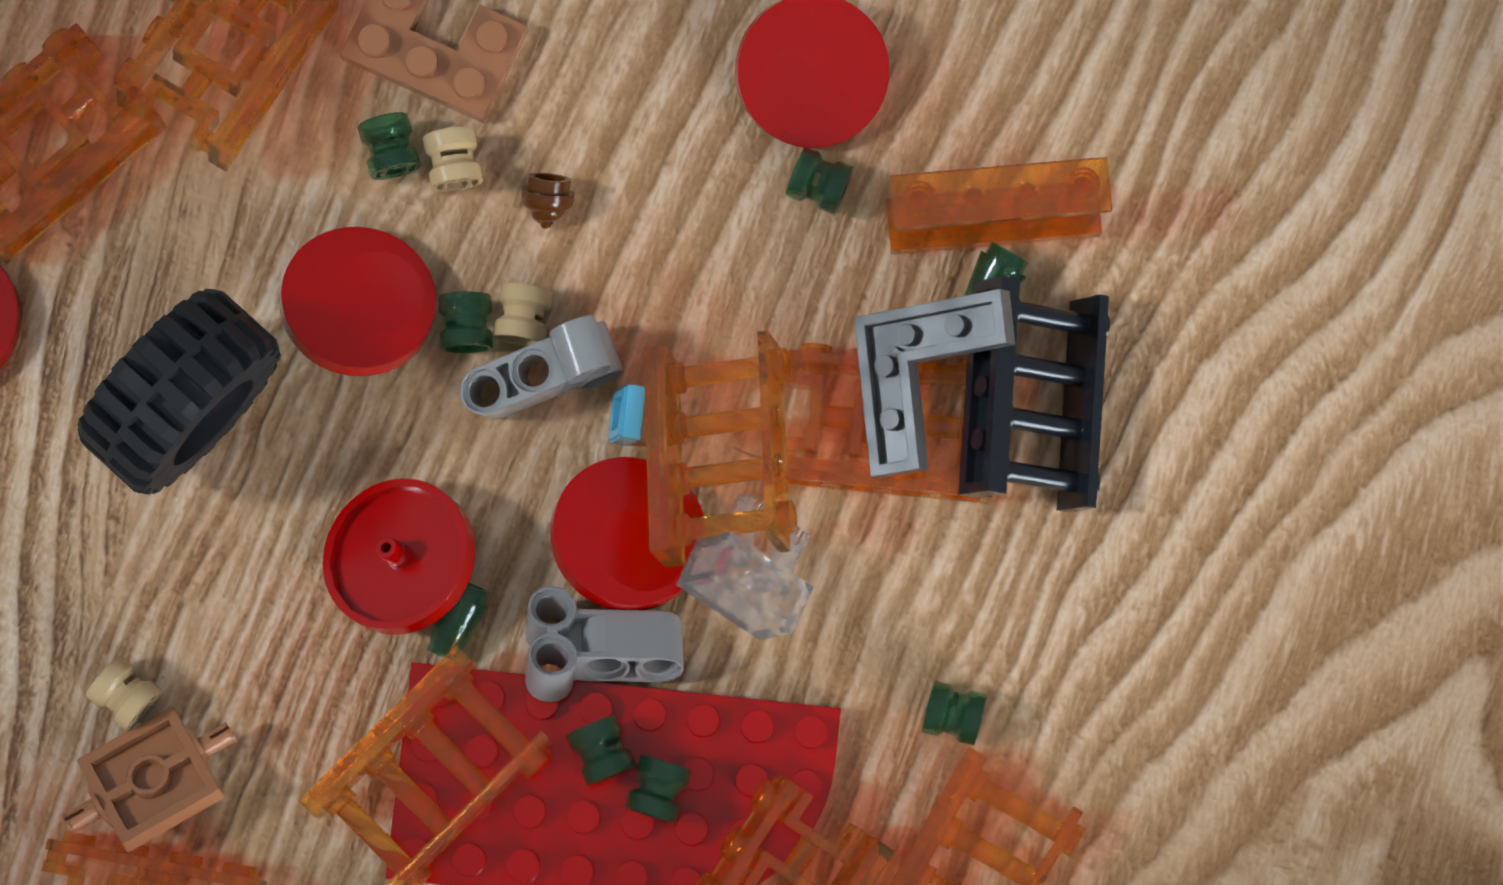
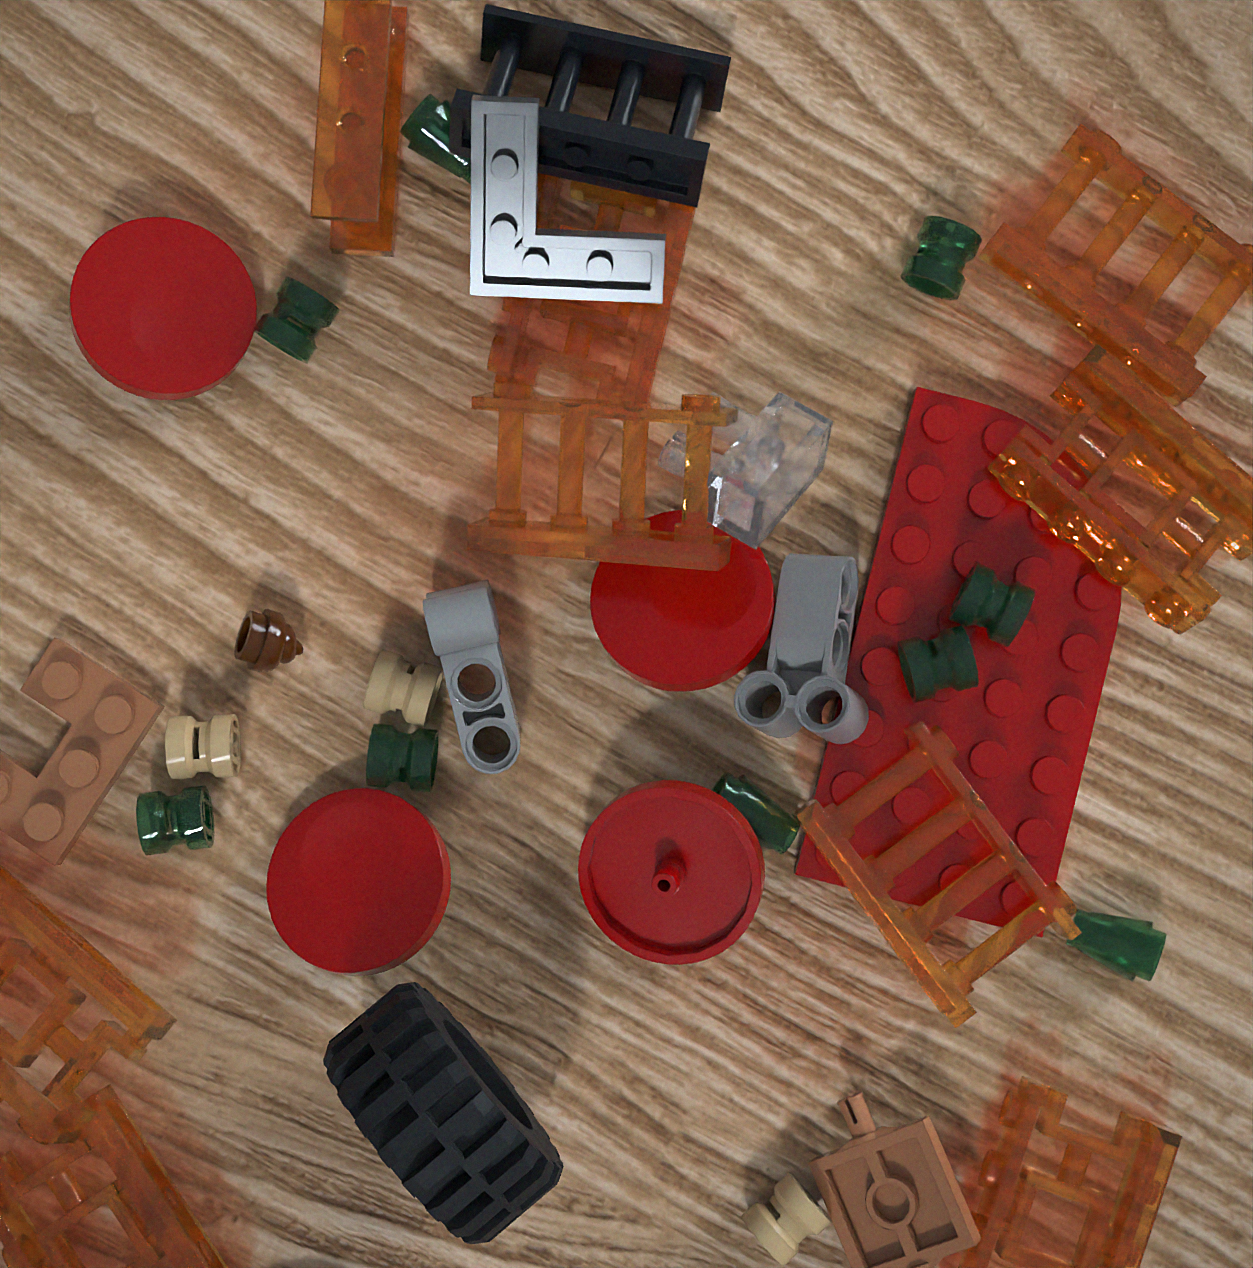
camera: 80 degrees left, 5 degrees up
(627, 415) = (541, 582): medium azure tile -> none

